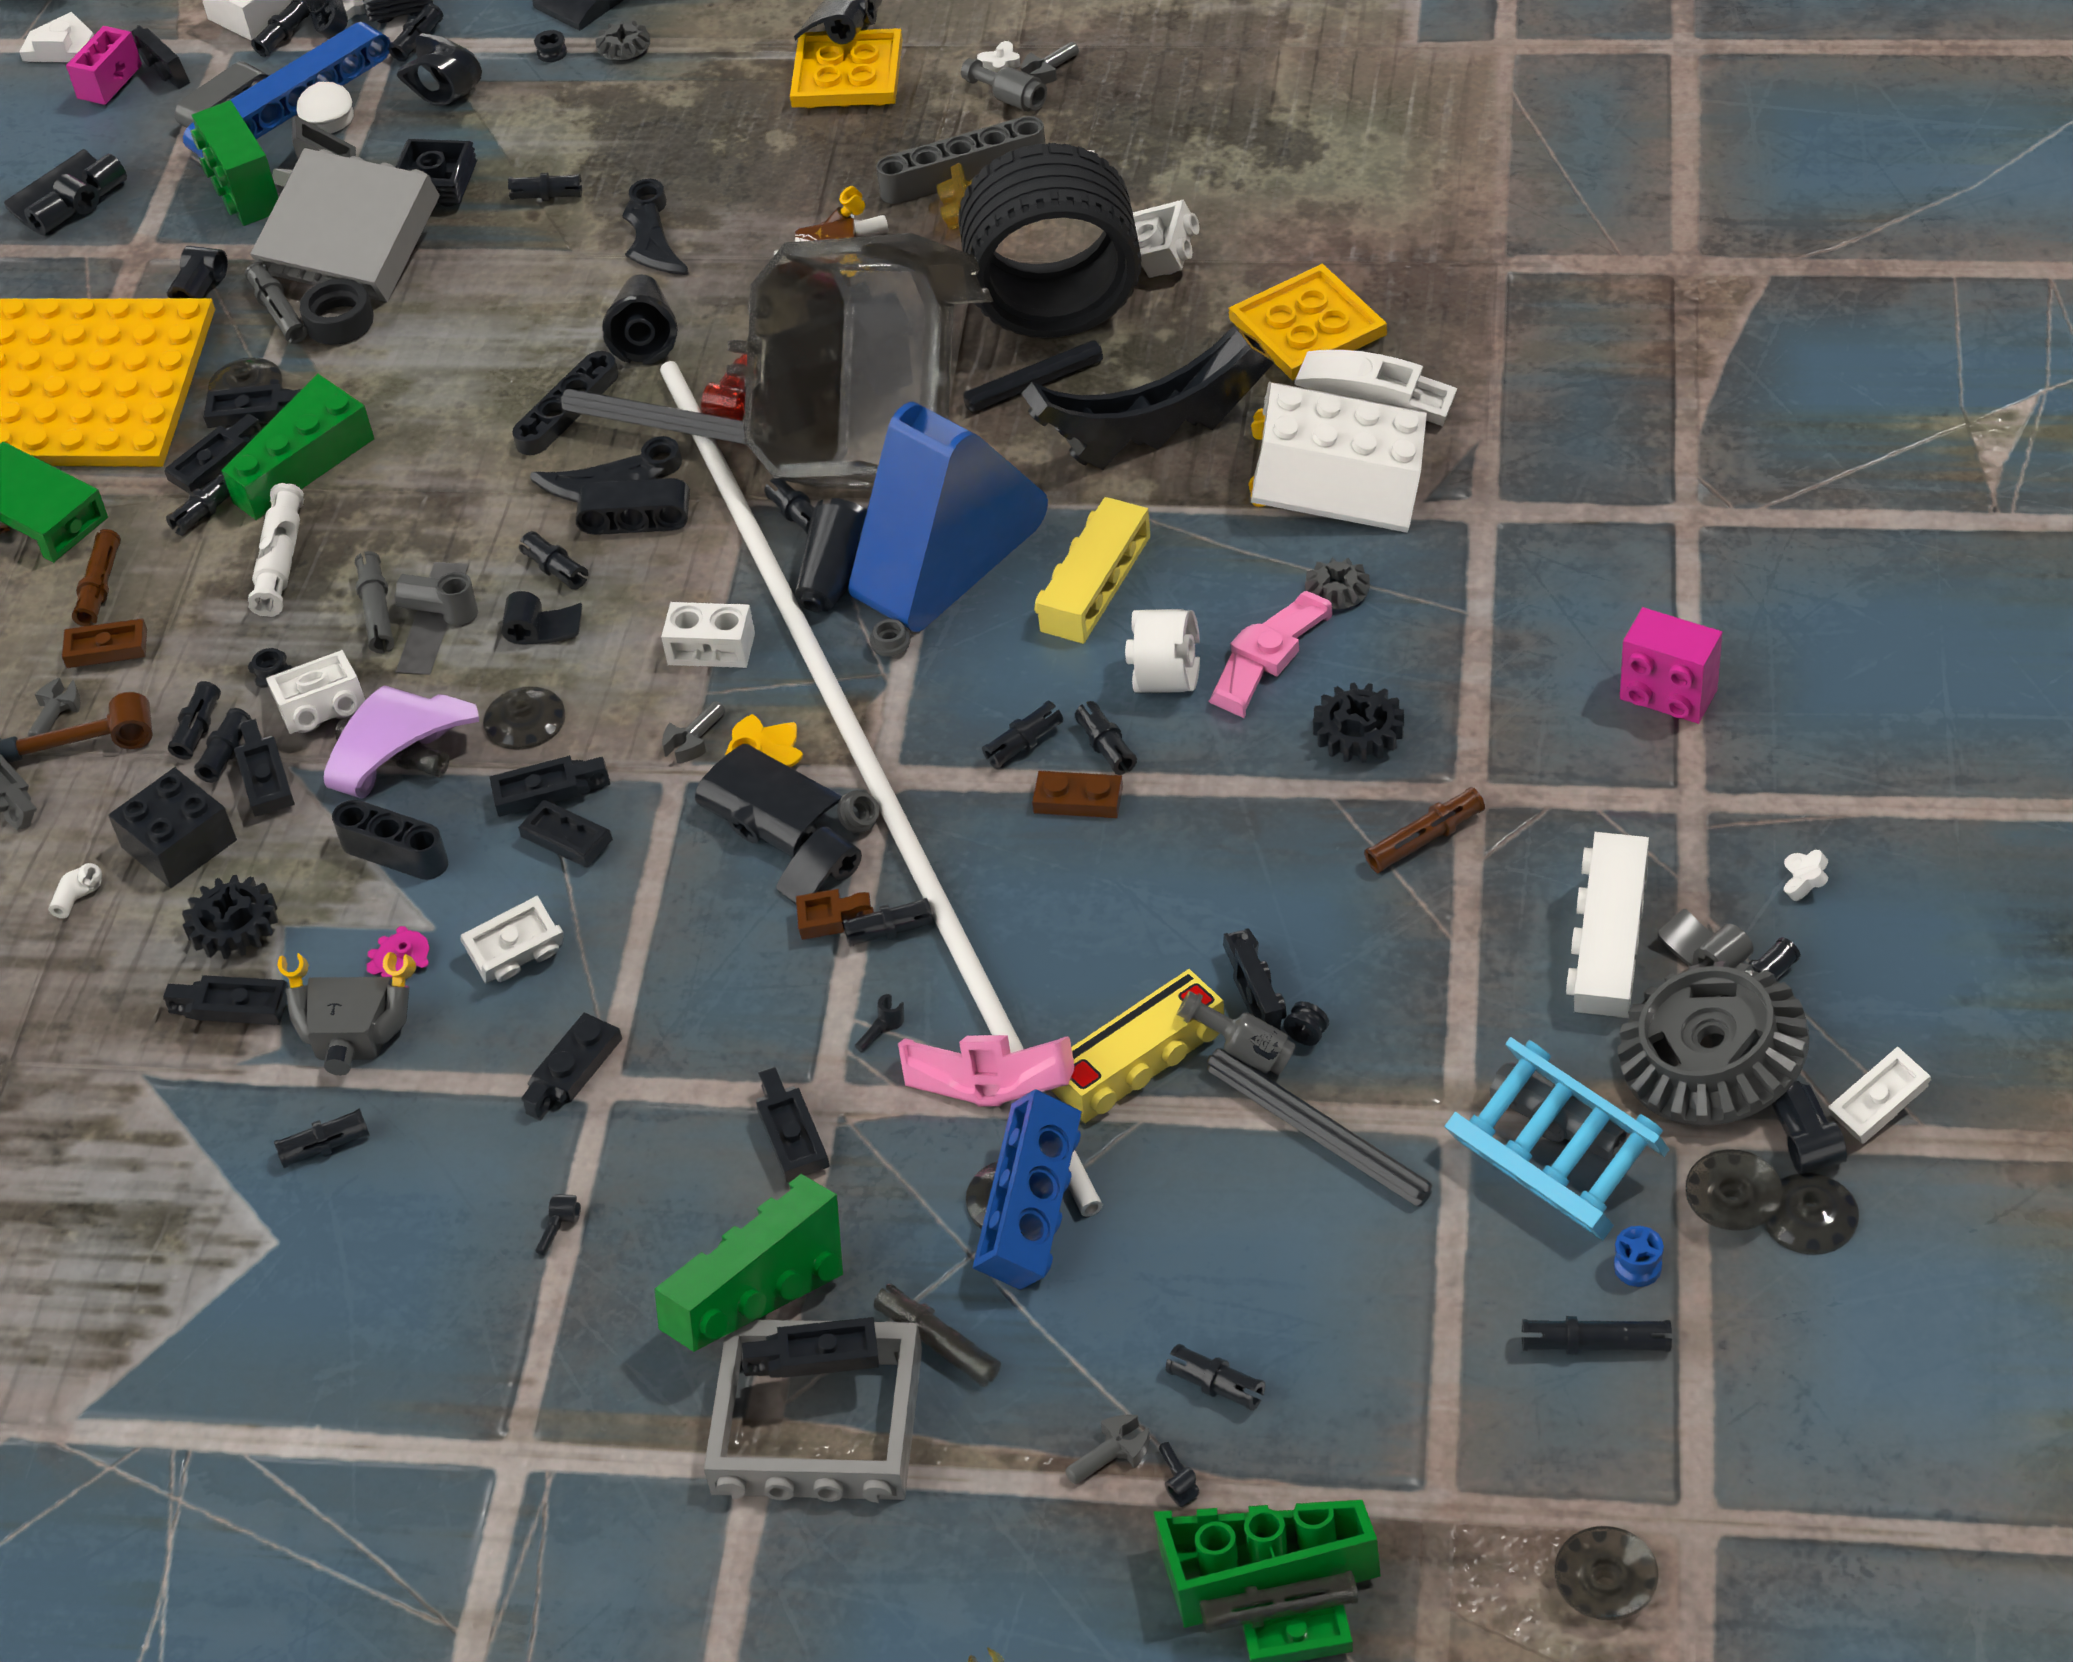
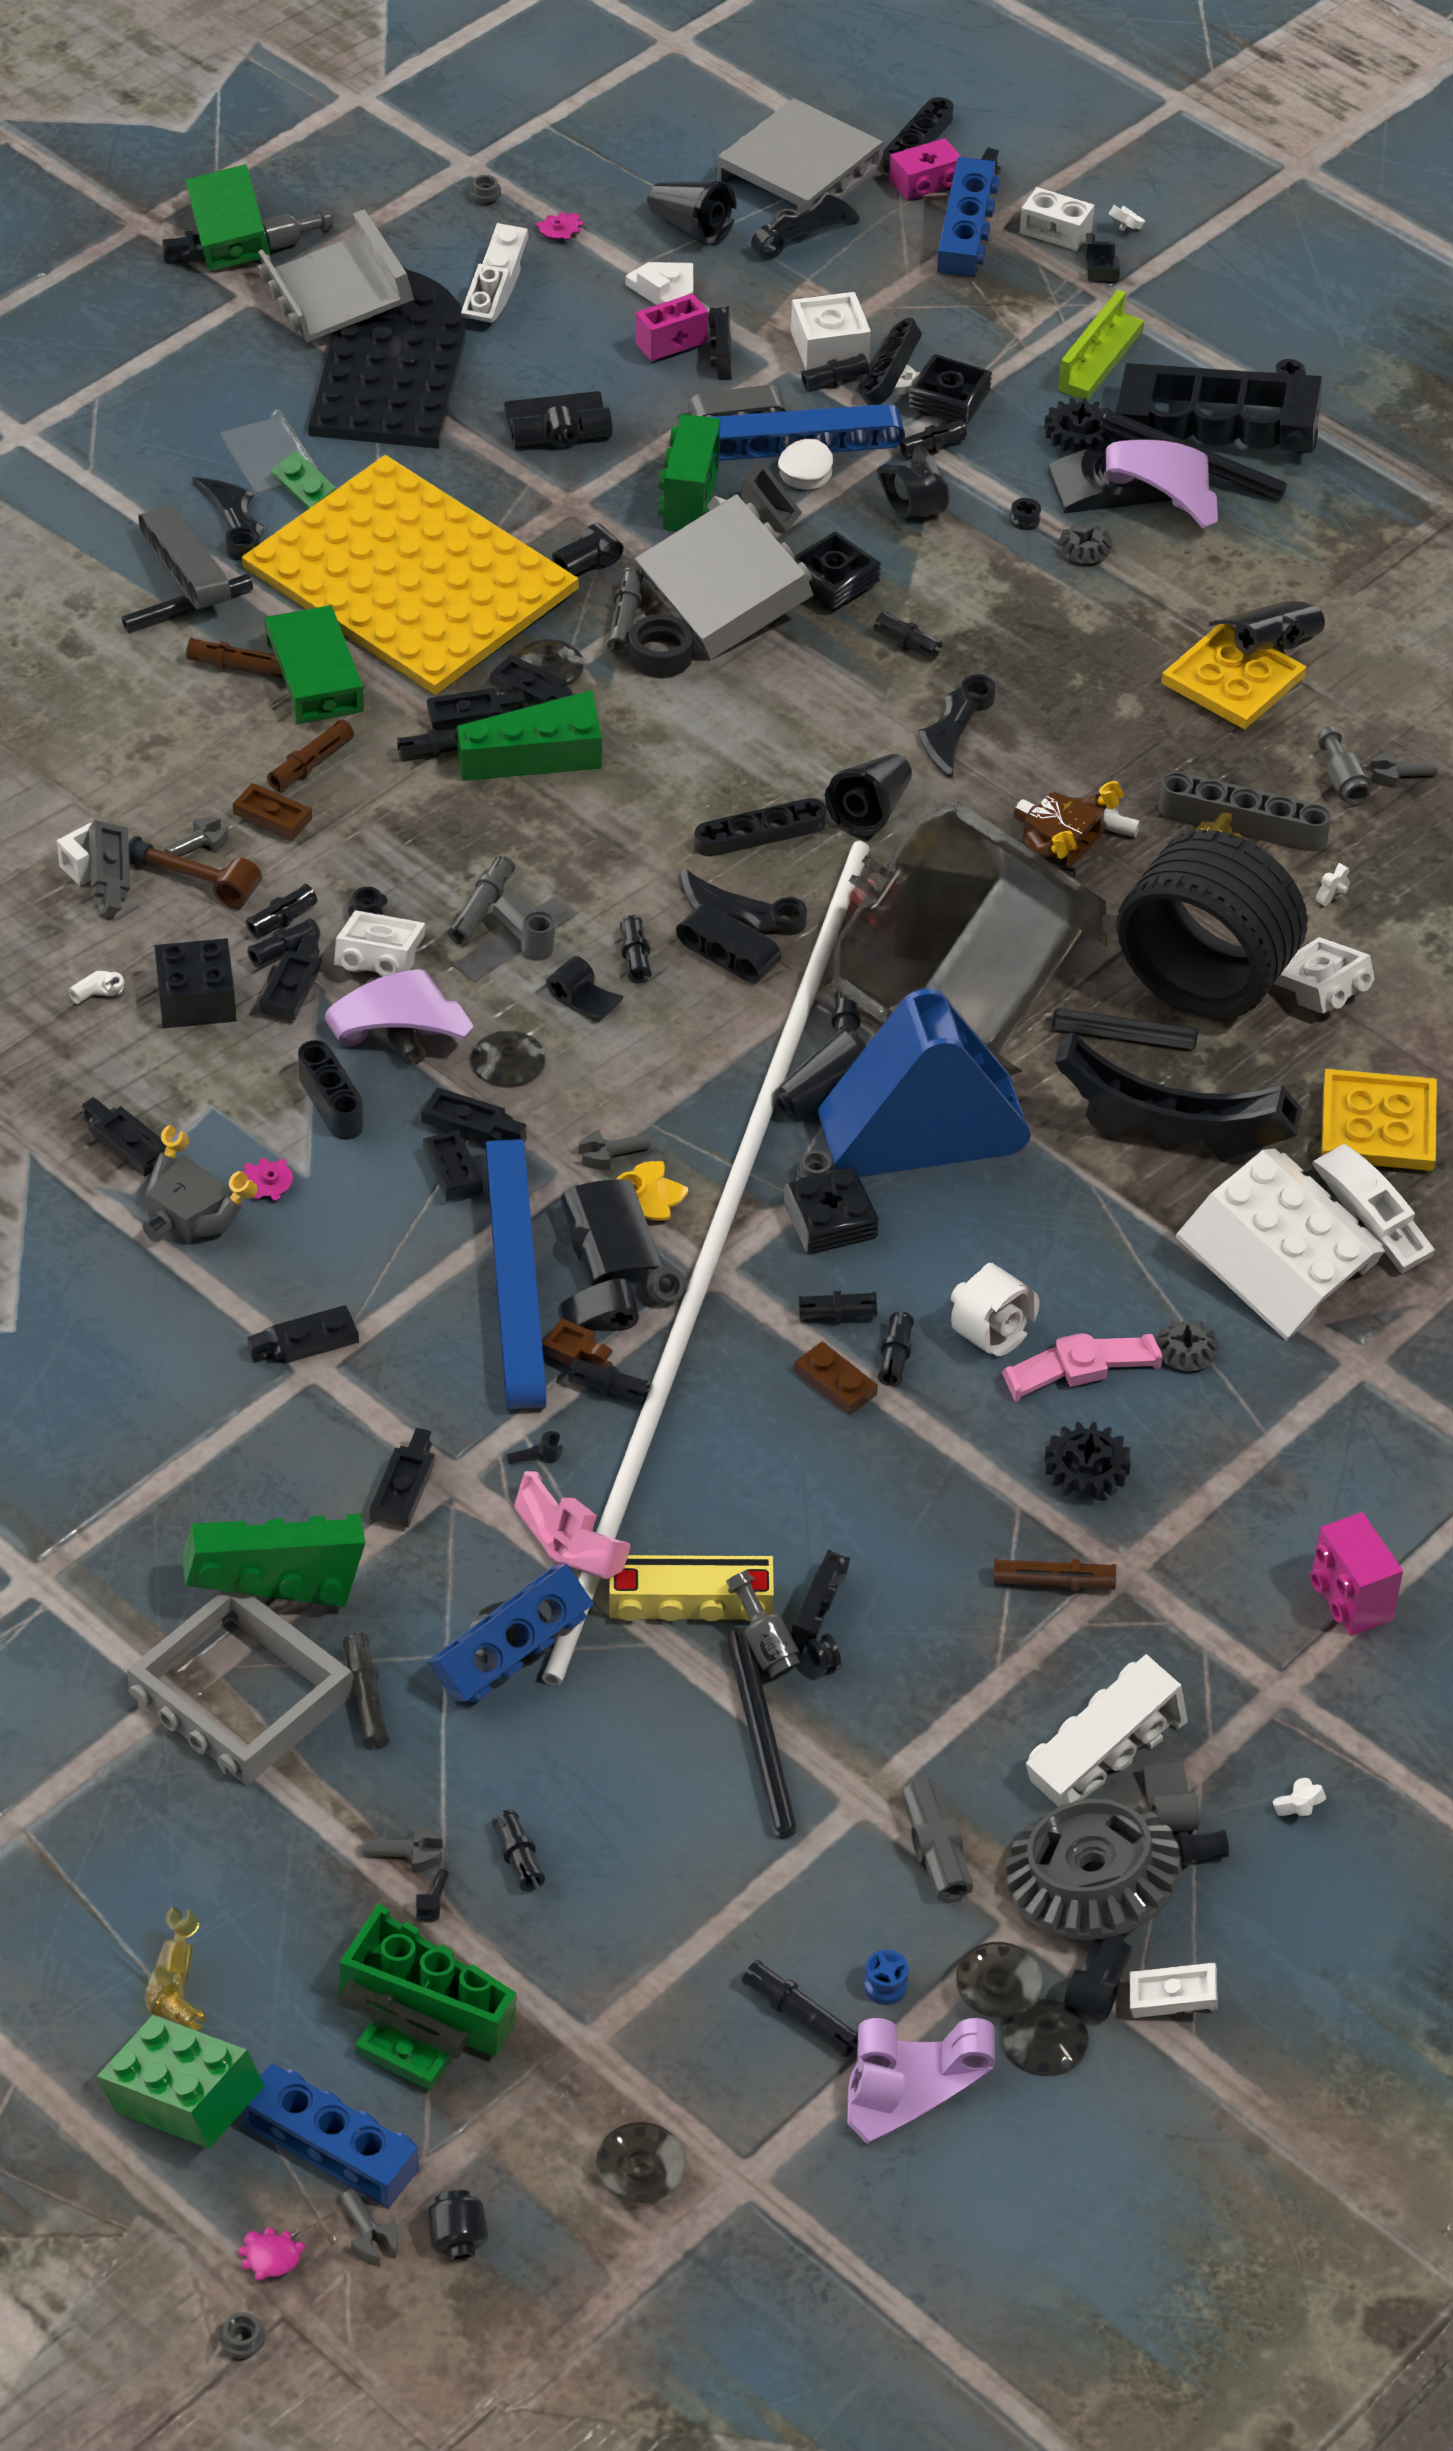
camera: 30 degrees right, 0 degrees up
(230, 916) = (177, 1075): black gear -> none
(276, 550) = (440, 823): white piece -> none
(321, 1138) = (99, 1276): black pin -> none
(512, 940) = (345, 1220): white bracket -> none
(561, 1209) = (206, 1433): black hand -> none
(653, 415) = (799, 873): black axle -> none
(708, 634) = (687, 1079): white brick -> none
(716, 888) = (515, 1275): none -> blue beam
(813, 1349) = (264, 1639): black hinge -> none
(937, 662) = (830, 1210): none -> black brick
(1001, 58) = (1366, 741): white piece -> none
(1093, 570) = (1012, 1213): light yellow brick -> none
(1552, 1181) = (866, 1847): medium azure fence -> none
(1747, 1322) = (907, 2079): none -> lavender panel

